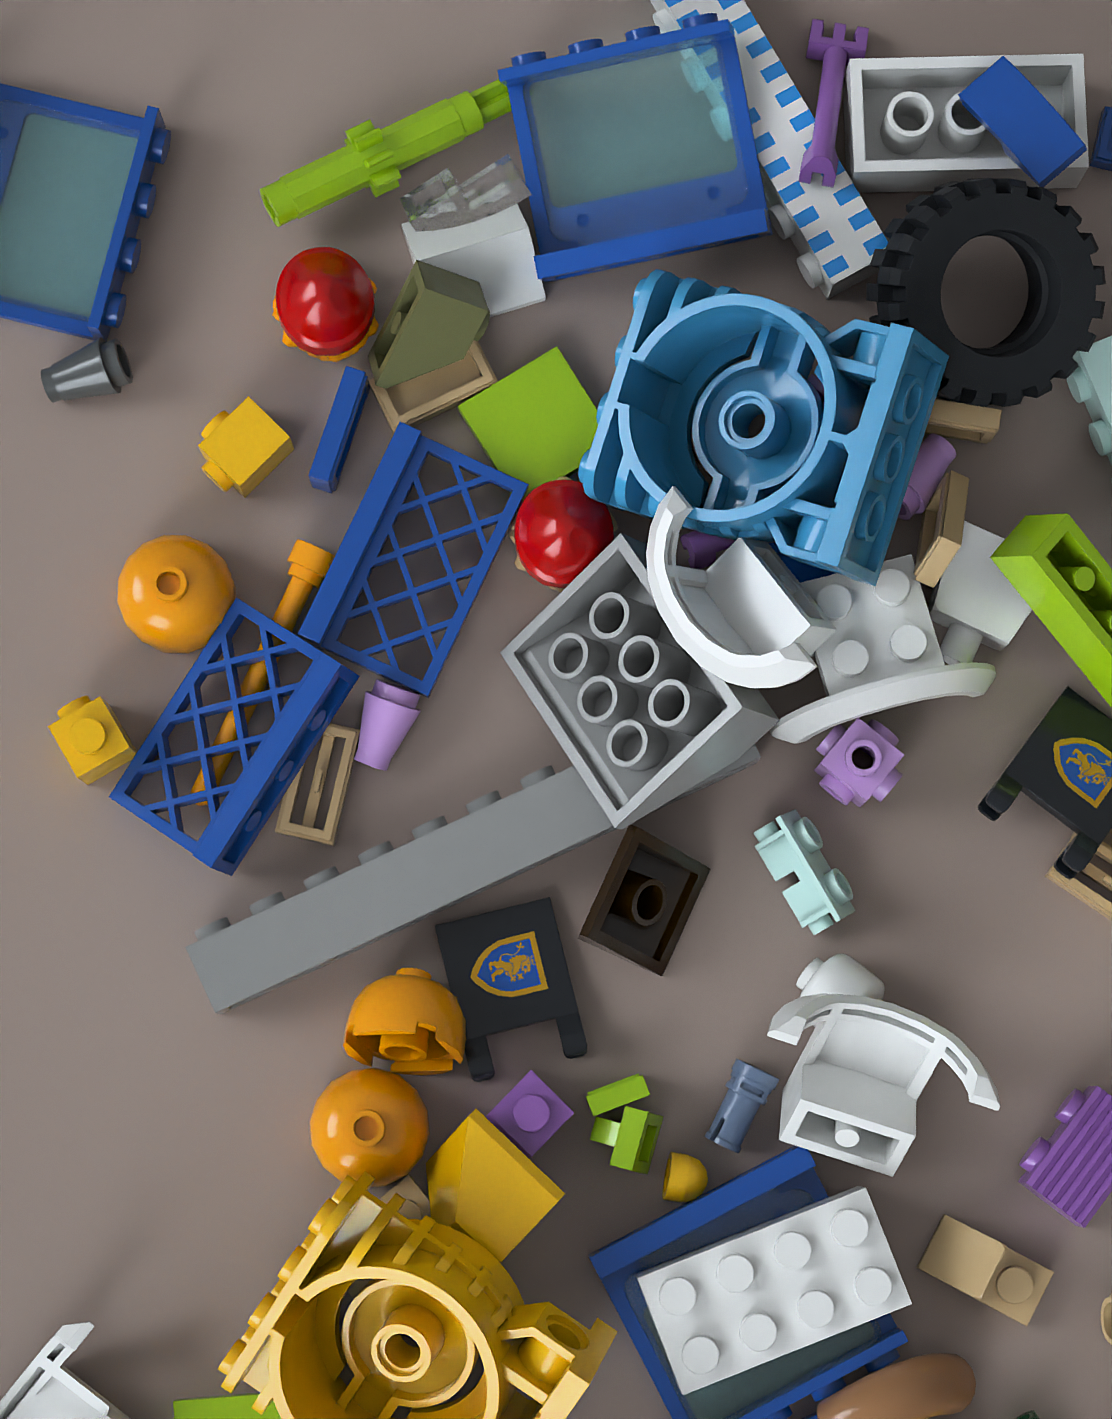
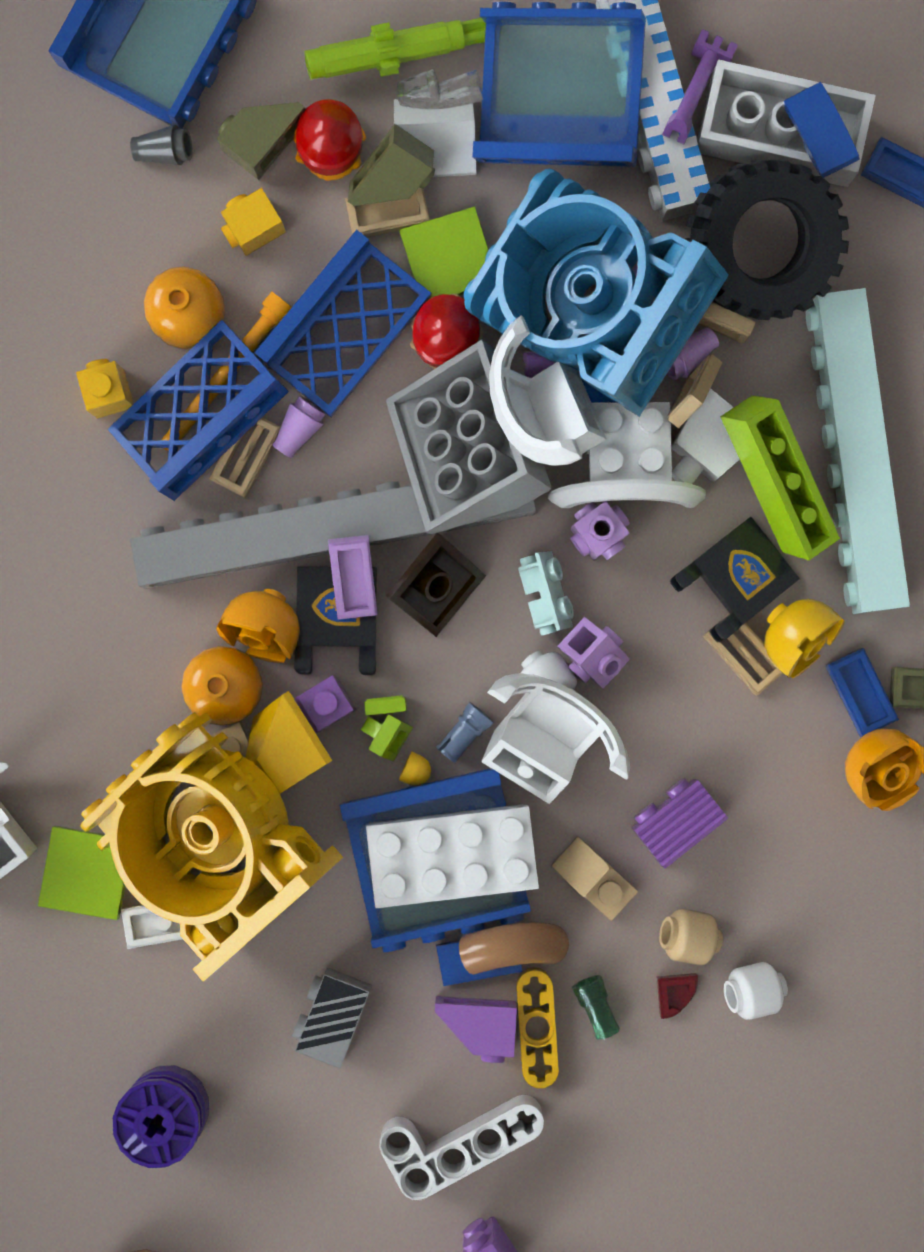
camera: 20 degrees right, 5 degrees up
(223, 322) = (259, 135): none -> olive slope
(339, 430) = (317, 226): blue tile -> none
(522, 920) = (352, 577): none -> lavender tile
(898, 940) = (594, 652): none -> lavender brick

